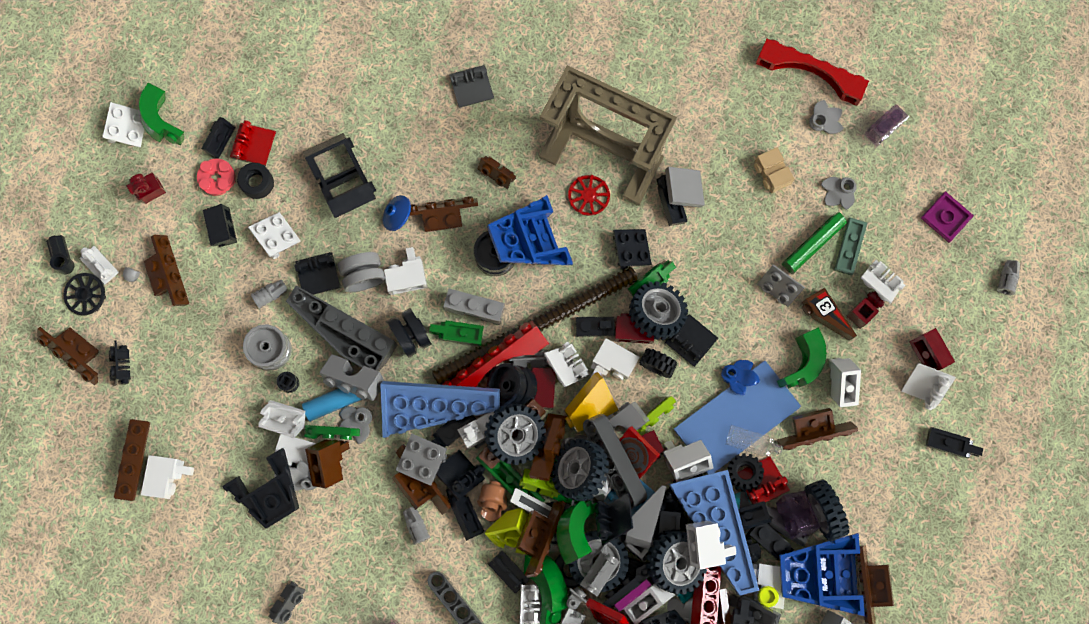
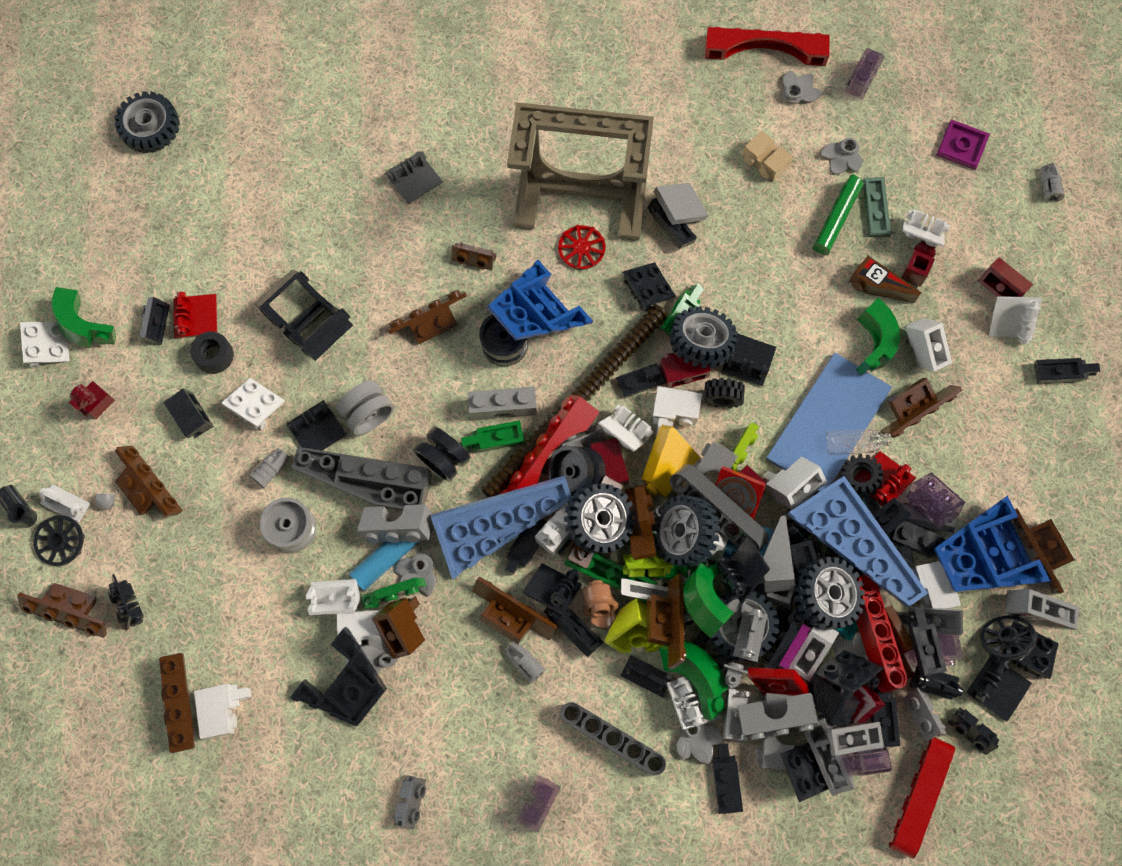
camera: 15 degrees left, 5 degrees down
(208, 169) = (156, 357): coral plate -> none
(291, 383) = (328, 558): black wheel -> none
(396, 213) = (381, 334): blue dish -> none
(406, 277) = (416, 397): white hinge -> none
(421, 459) = (505, 585): light grey hinge -> none
(705, 545) = (853, 562): white hinge -> none
(742, 376) = (817, 376): blue plate -> none
(767, 596) = (939, 597): neon yellow tile -> none
(780, 285) = (821, 268): light grey hinge -> none
(827, 510) = (966, 481): black wheel -> none

